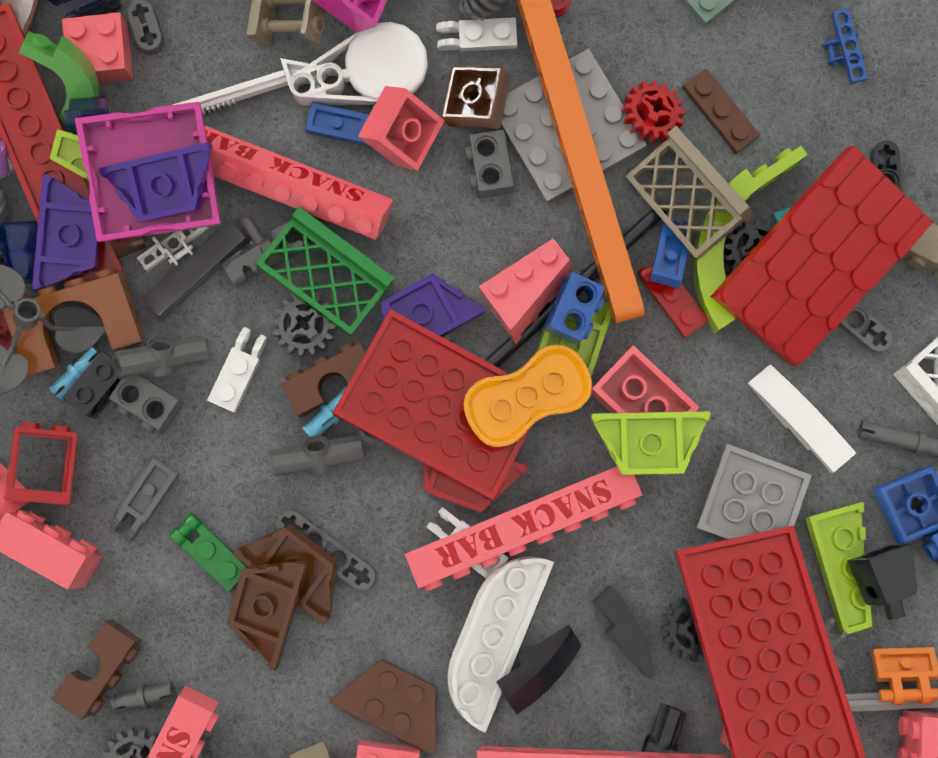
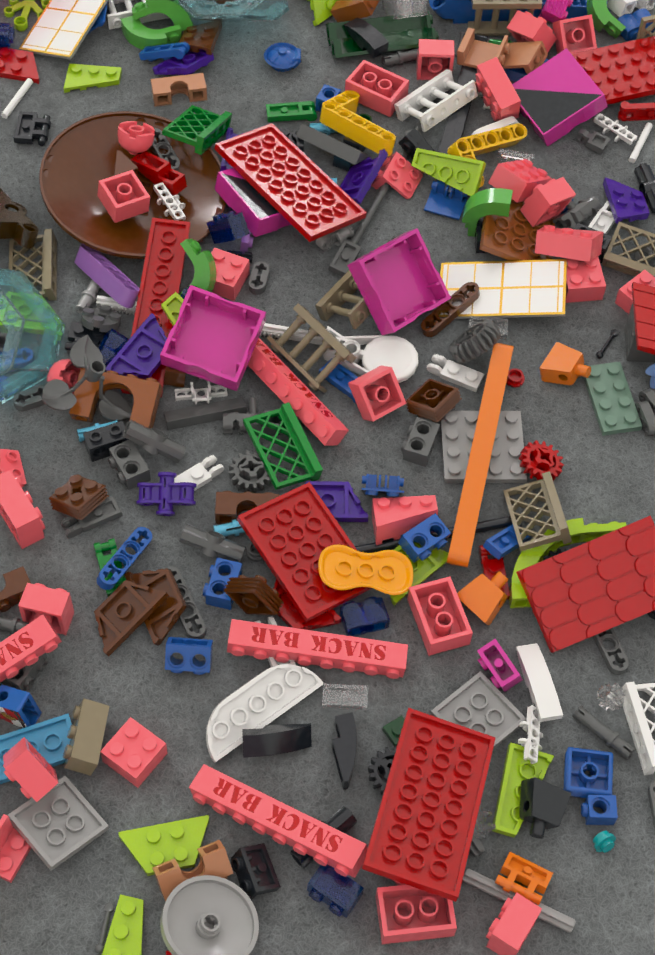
camera: 25 degrees right, 25 degrees down
(58, 432) = (31, 479): red window -> none
(113, 486) = (78, 497): none -> reddish brown brick
(162, 182) = (218, 344): dark purple wing -> none
(169, 662) = (52, 603): none -> coral brick
(219, 419) = (166, 494): none -> dark purple axle
(225, 536) = (122, 556): none -> blue beam
(299, 86) = (328, 341): none -> dark tan fence
(368, 497) = (218, 582): none -> blue brick
(376, 620) = (188, 649): none -> blue brick
(393, 703) = (167, 714): reddish brown wing -> none
(411, 503) = (253, 595): none -> reddish brown brick
(473, 270) = (394, 483): none -> blue hinge
(552, 447) = (364, 616): none -> clear blue brick
(586, 563) = (345, 696): none -> clear plate
(651, 441) = (430, 632): lime wing -> none
(667, 571) = (393, 730): none -> dark green plate
(683, 343) = (484, 596): none -> orange torso
(720, 111) = (586, 485): reddish brown plate -> none
(748, 426) = (496, 660): none -> dark pink brick
(835, 506) = (534, 734): none -> white piece
(892, 391) = (610, 696): none -> clear gear

